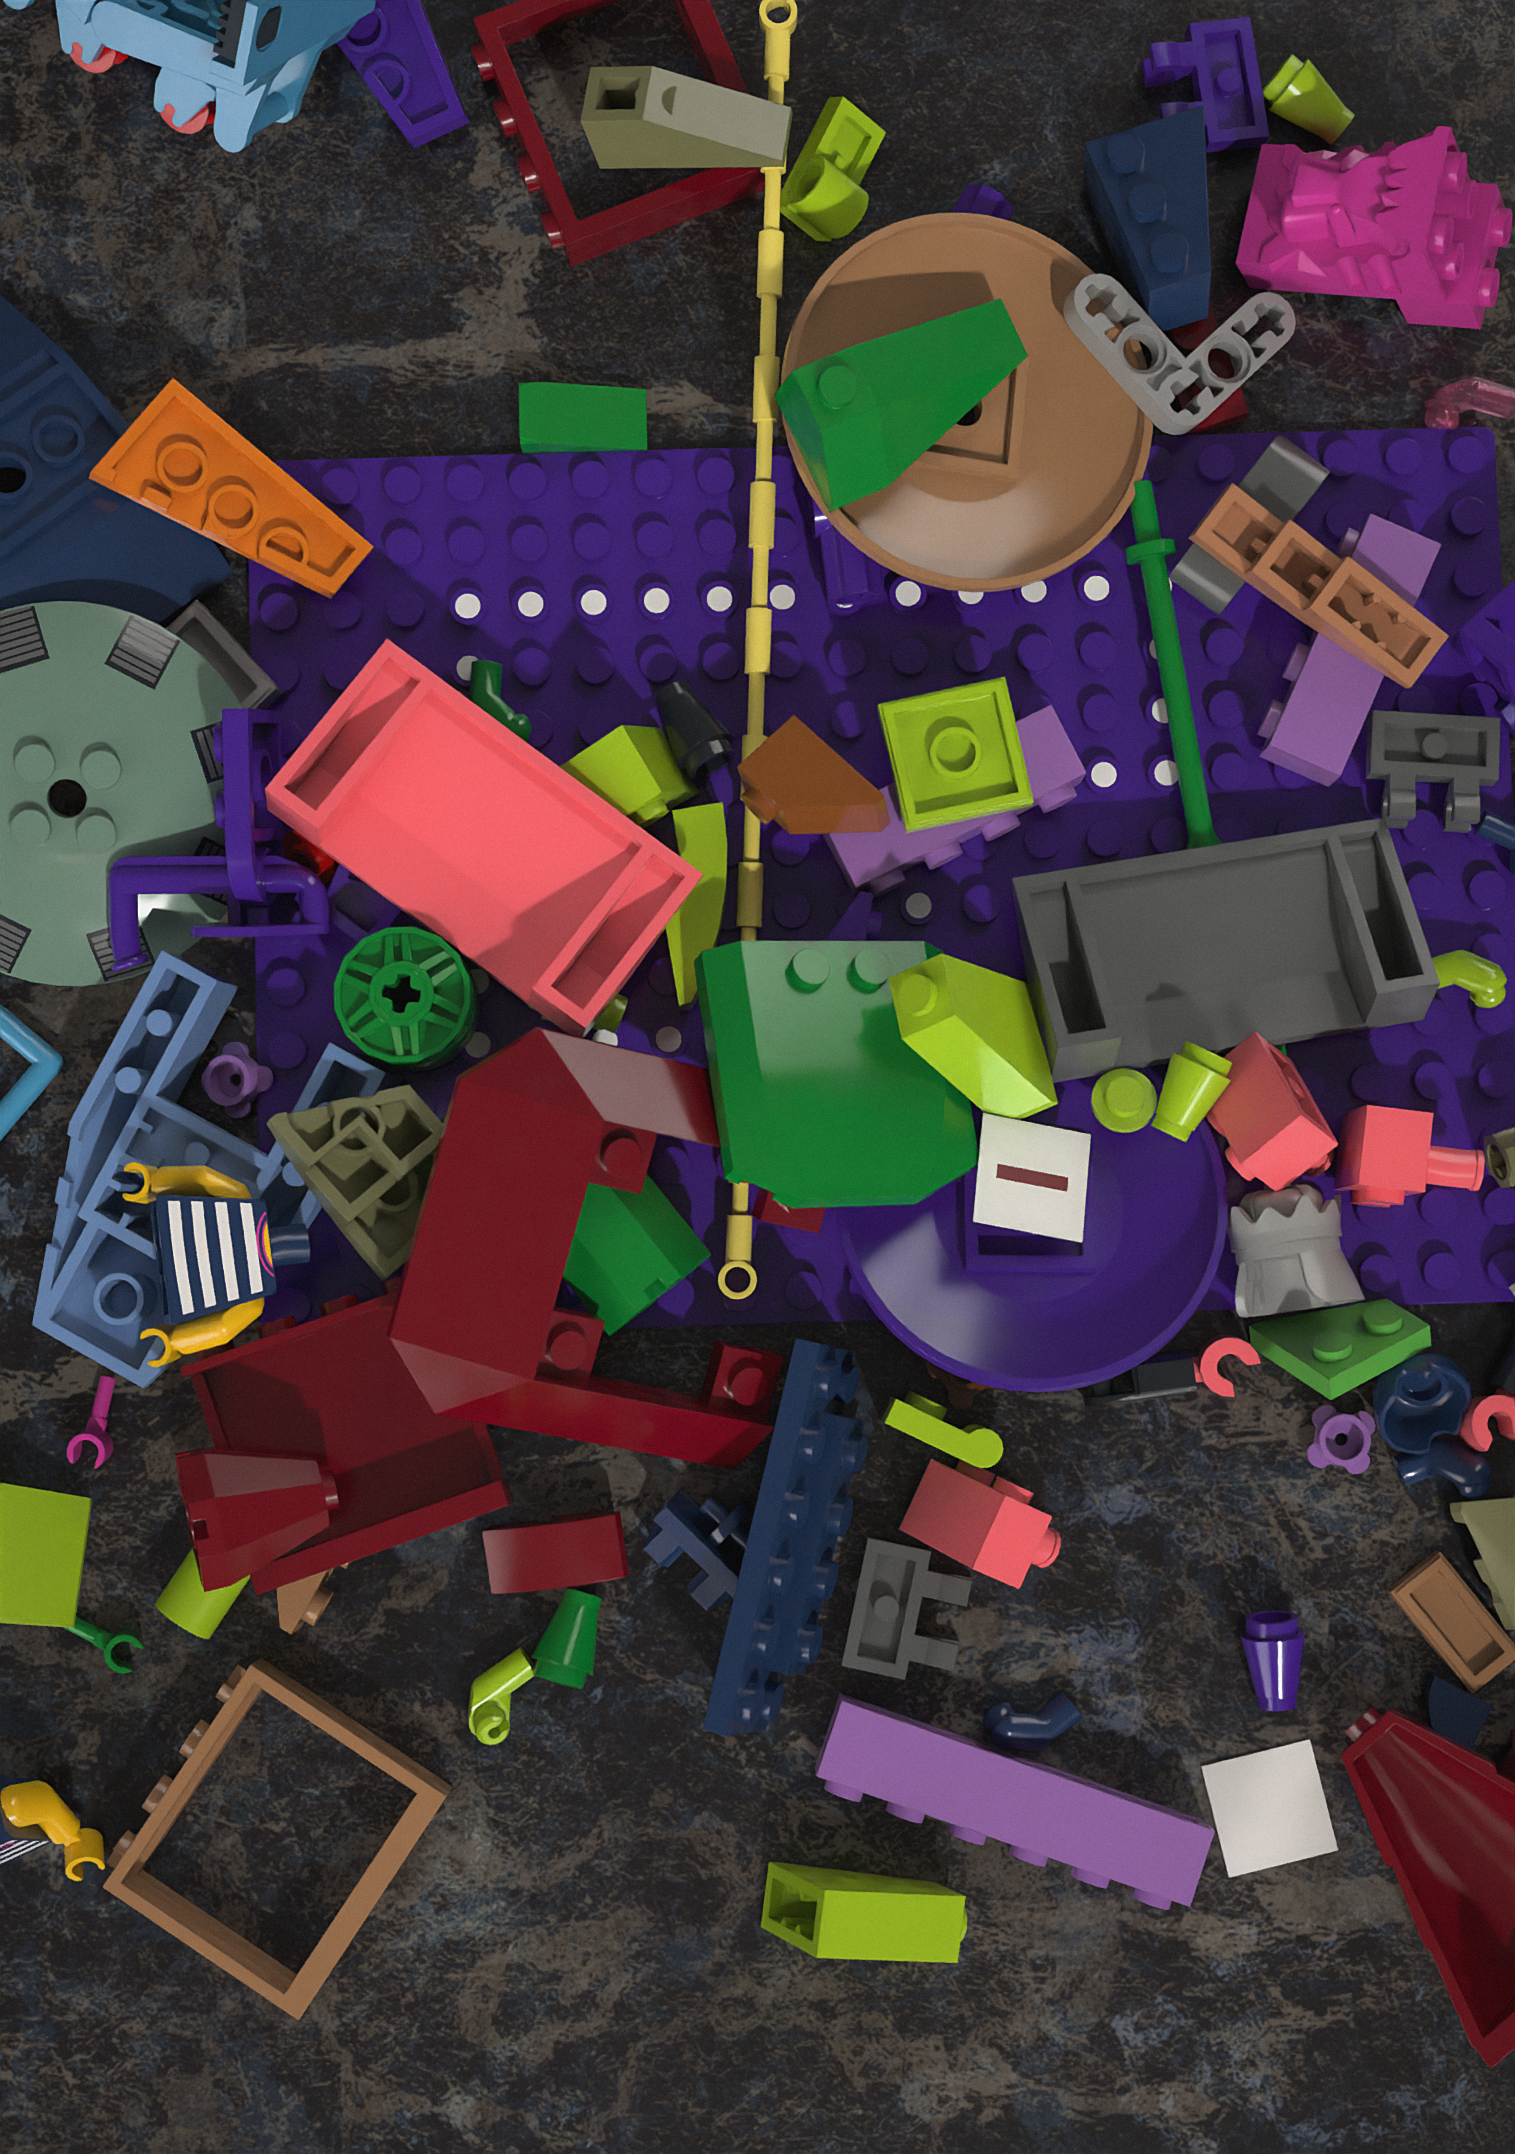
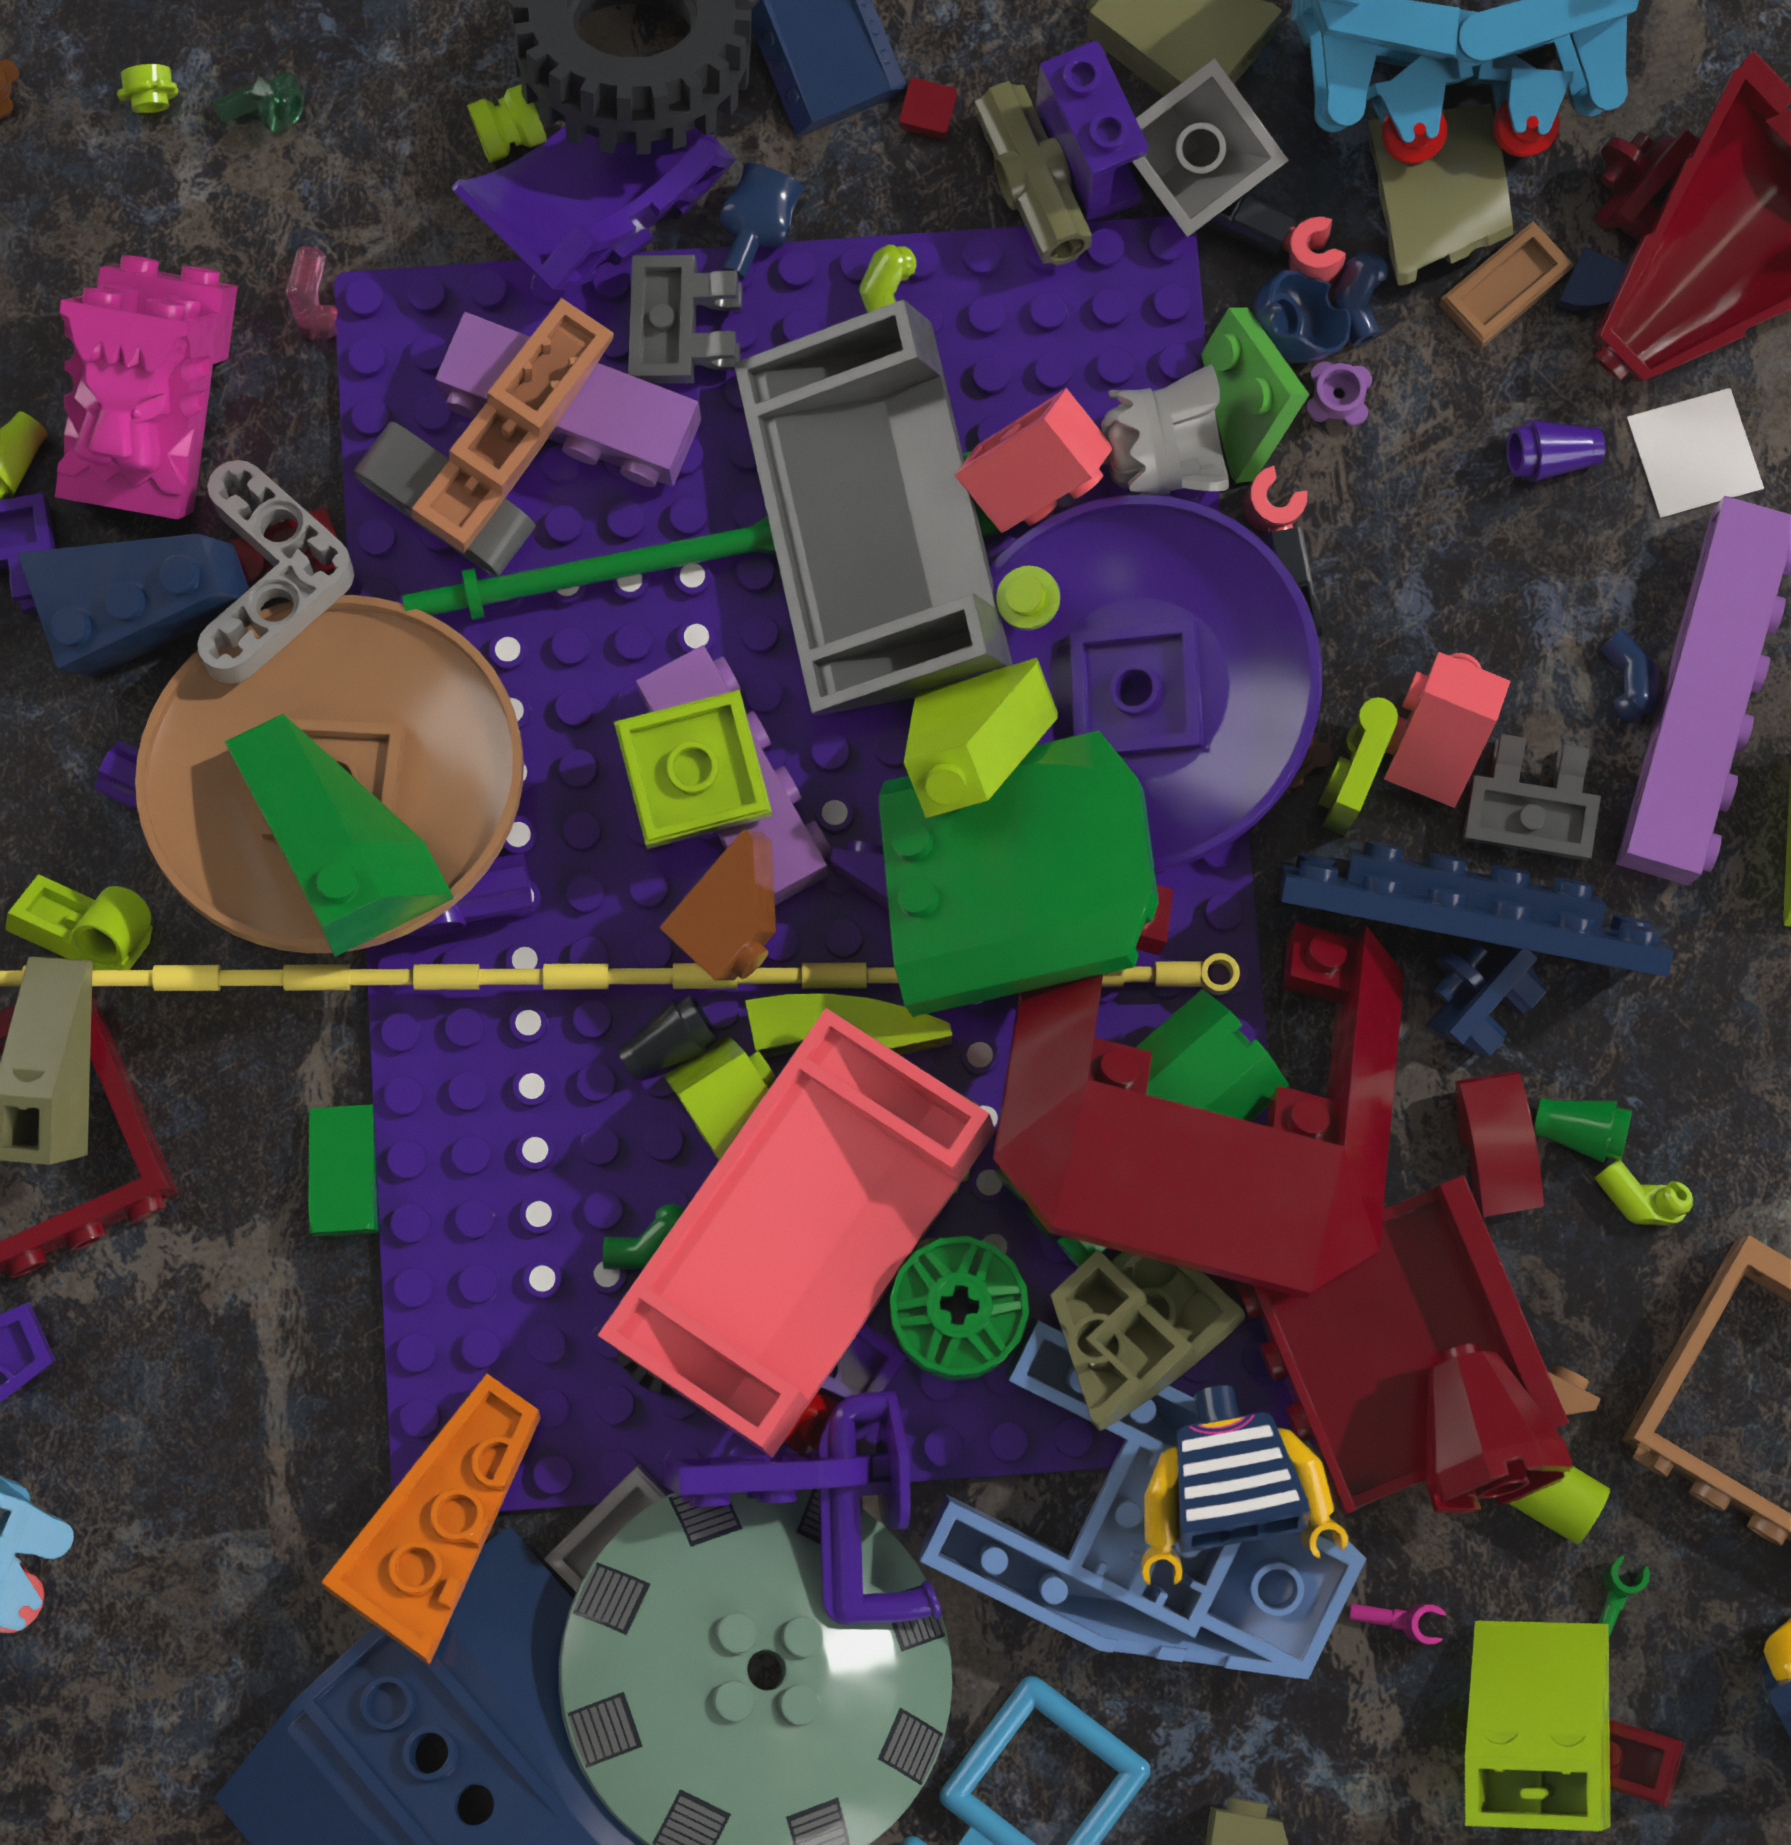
camera: 90 degrees left, 5 degrees down
(219, 1074) = (1046, 1510): medium lavender plate -> none
(1032, 1178) = (1110, 680): white sticker -> none
(1190, 1089) = (1016, 533): lime cone -> none
(1390, 1156) = (1072, 338): coral brick -> none

